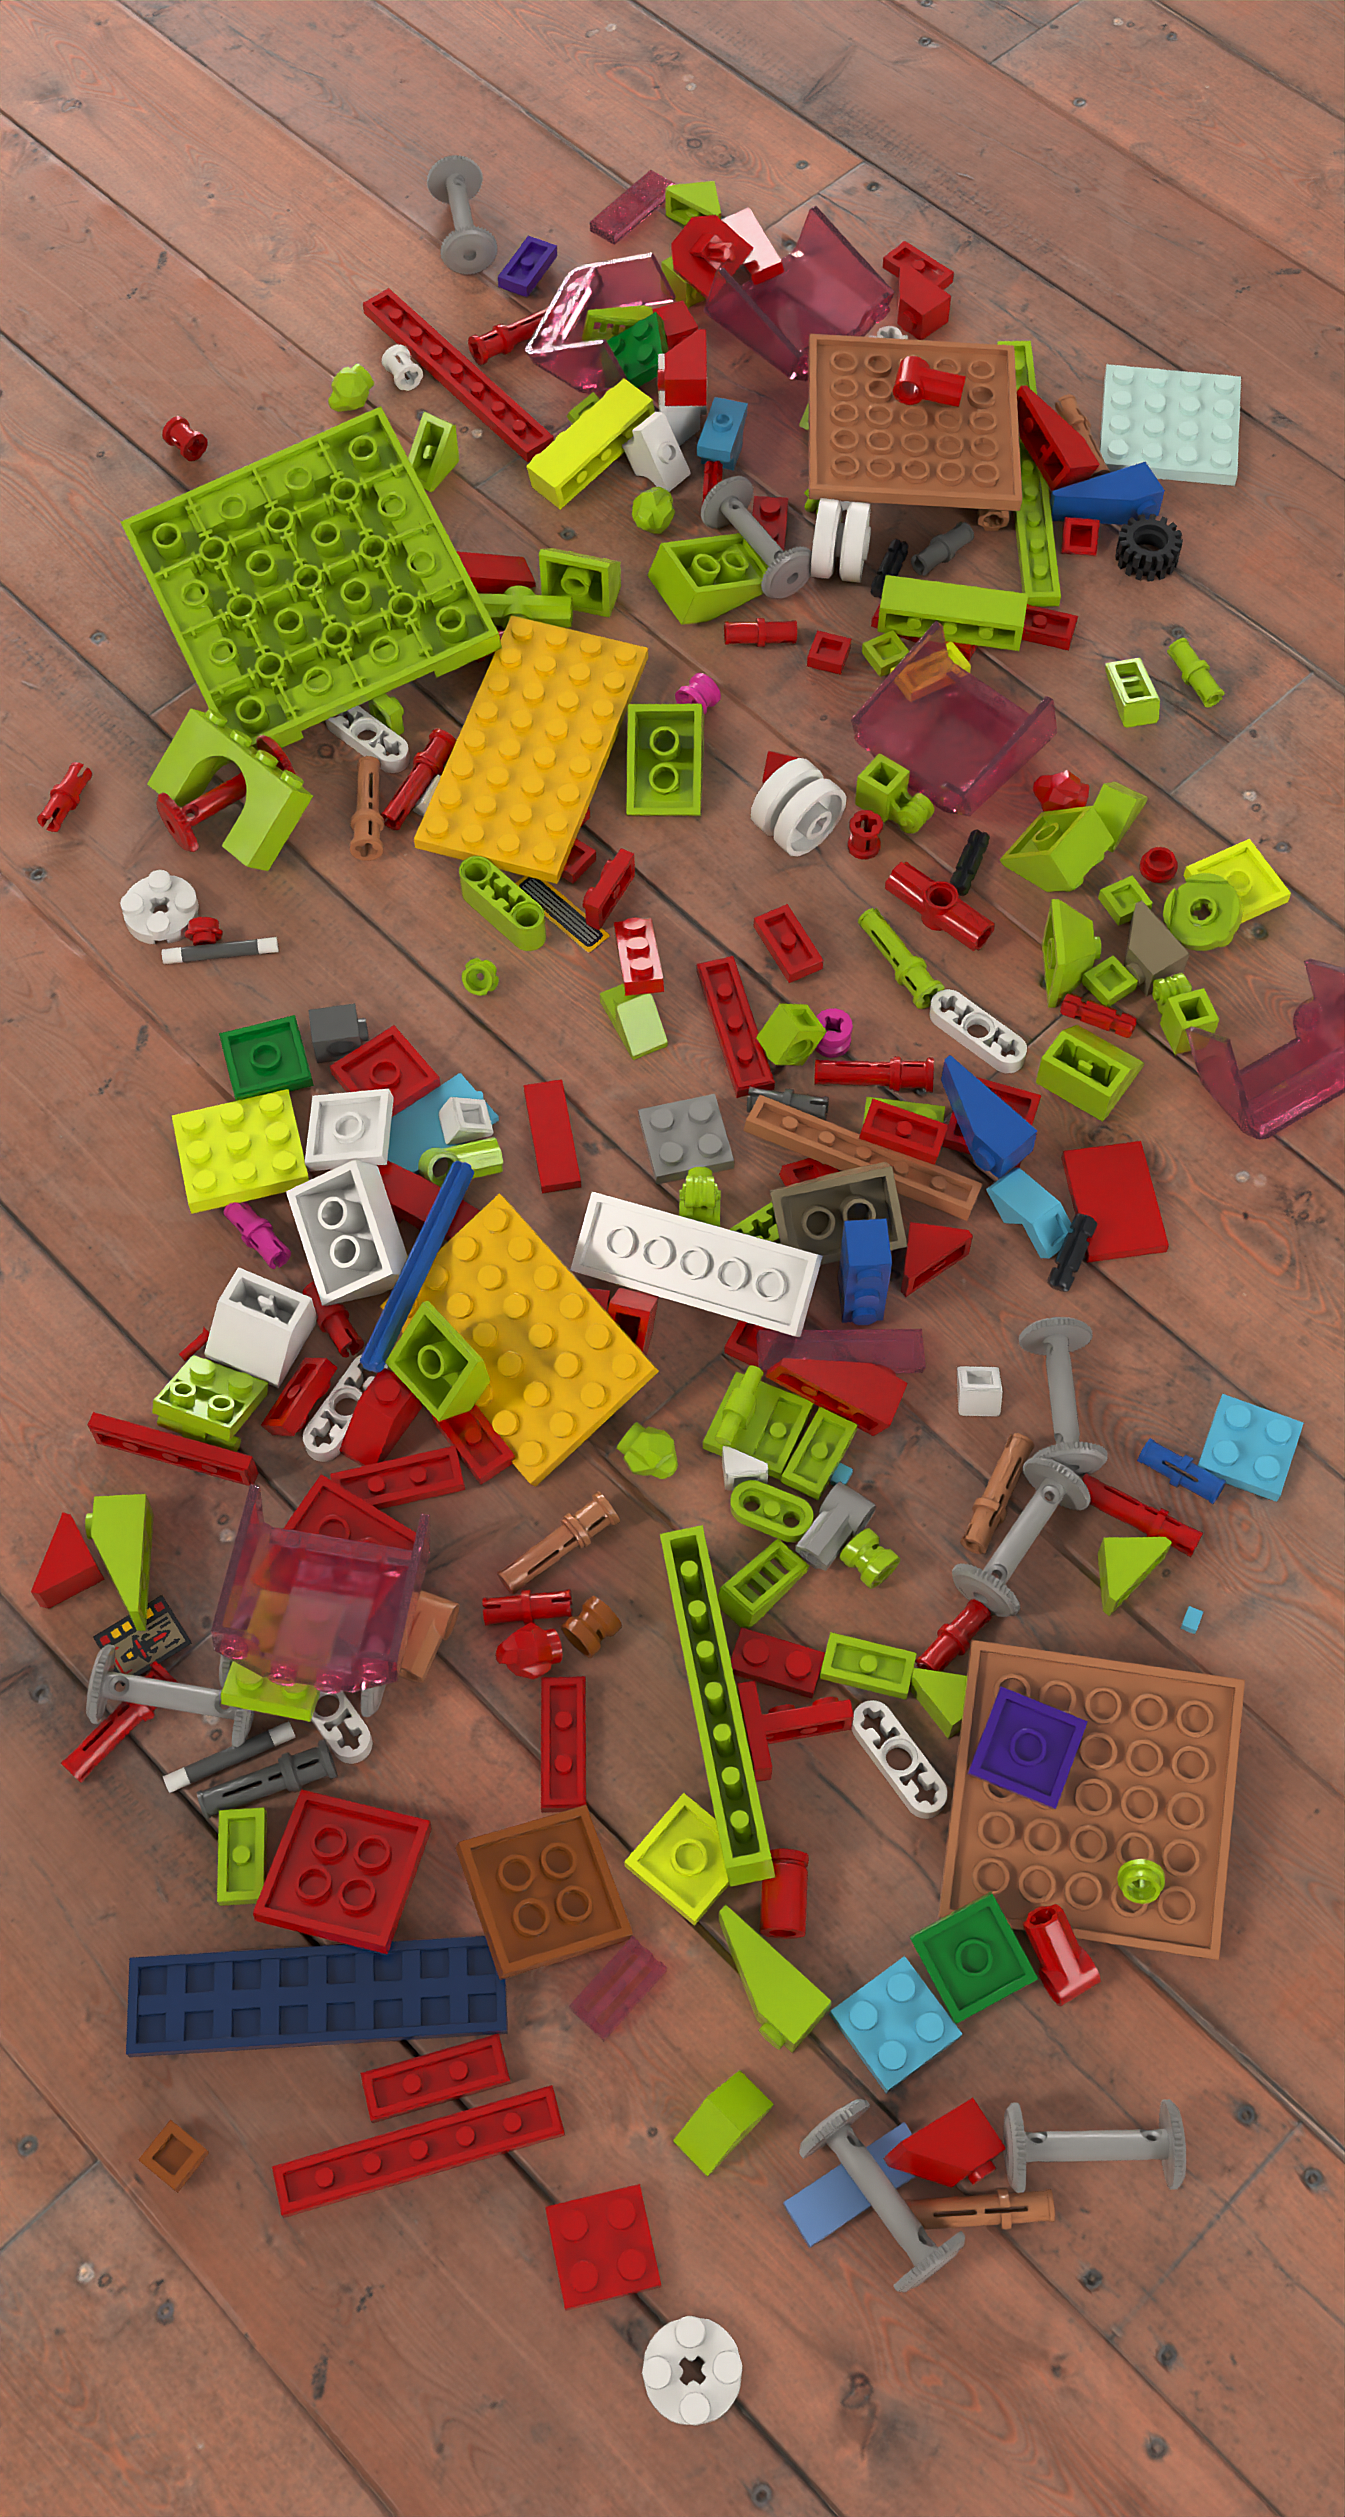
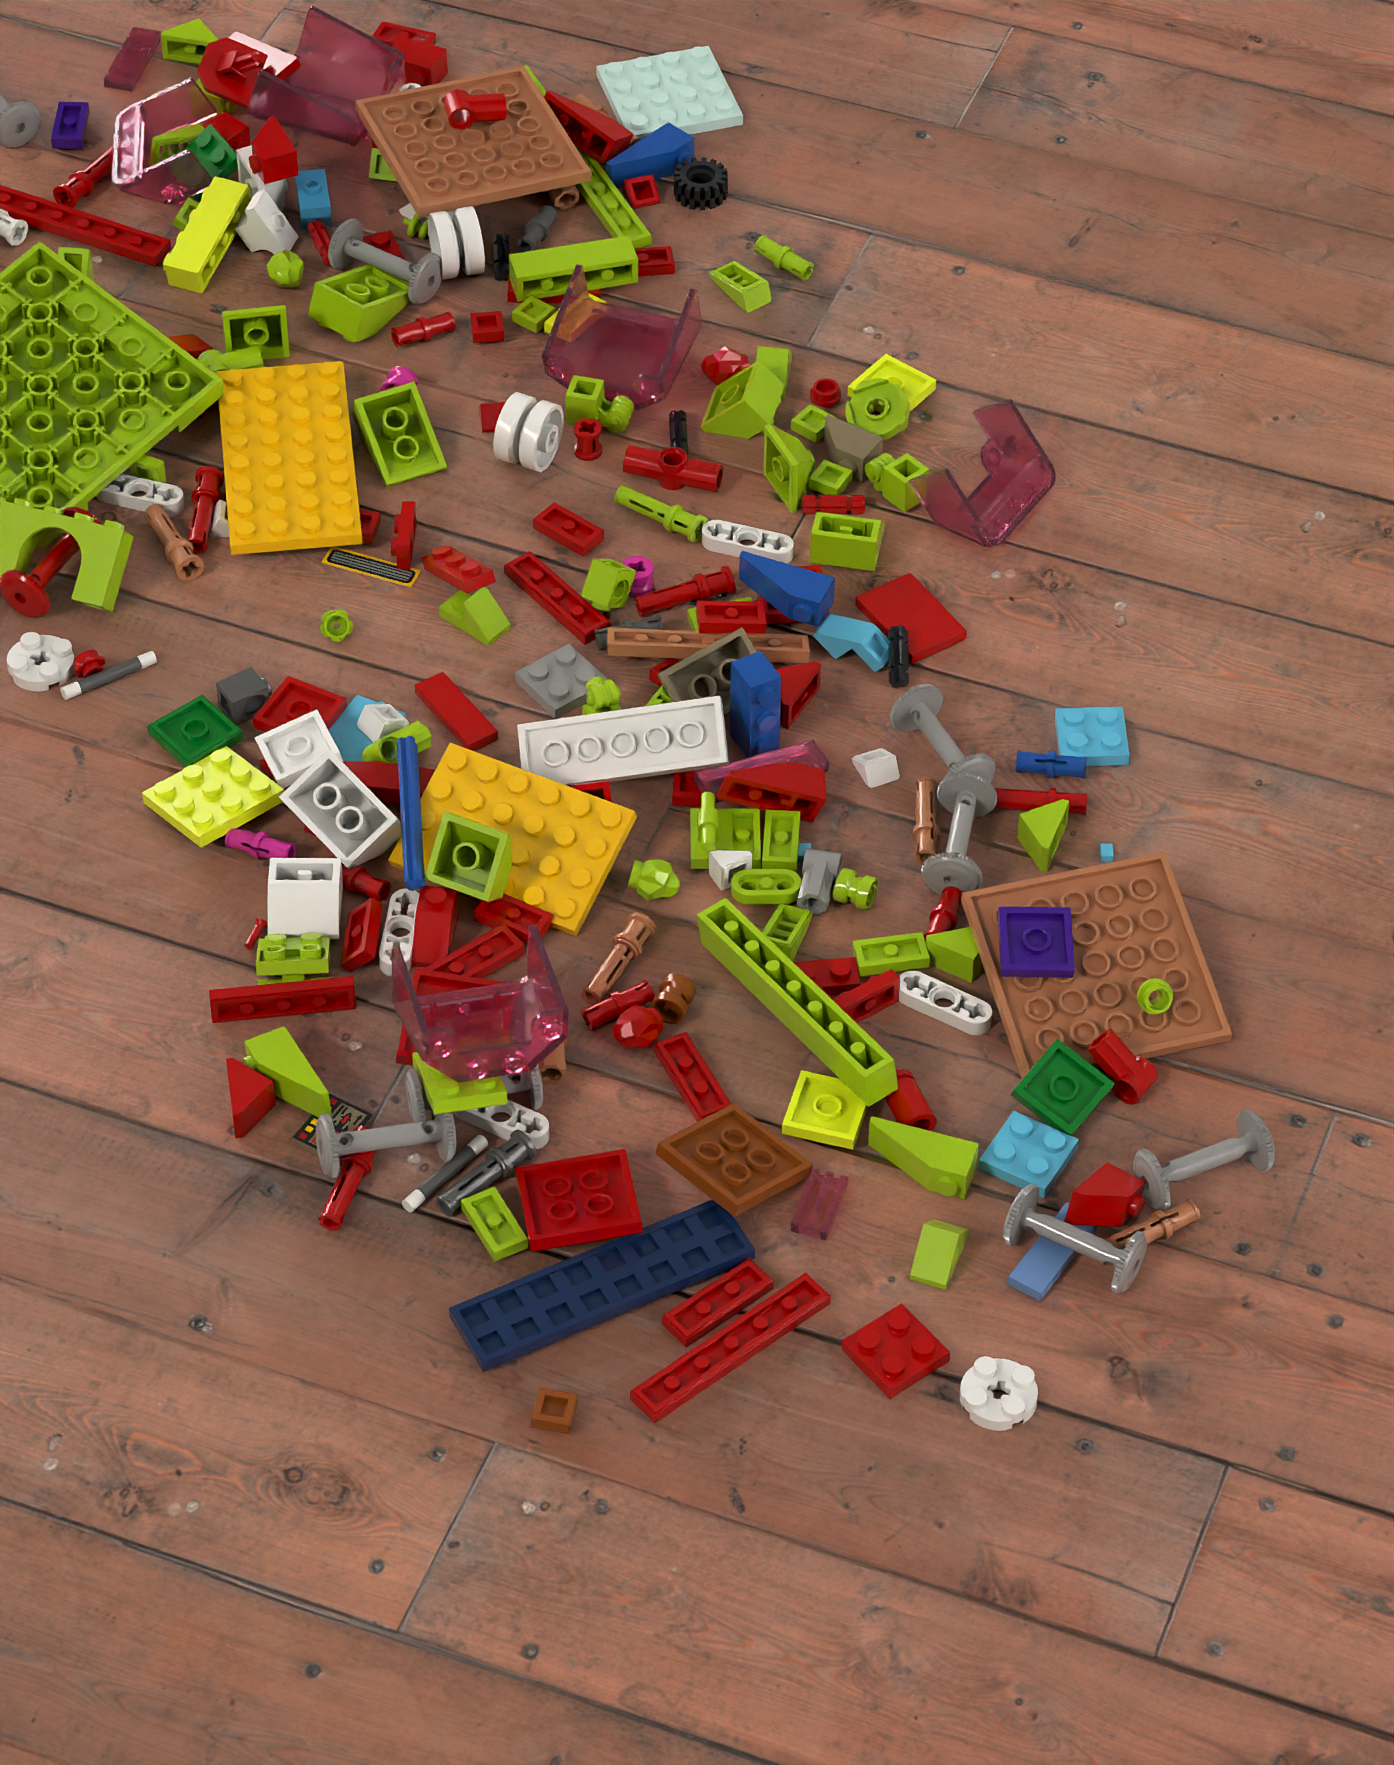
camera: 25 degrees left, 15 degrees down
(502, 903) = (325, 570): lime beam -> none

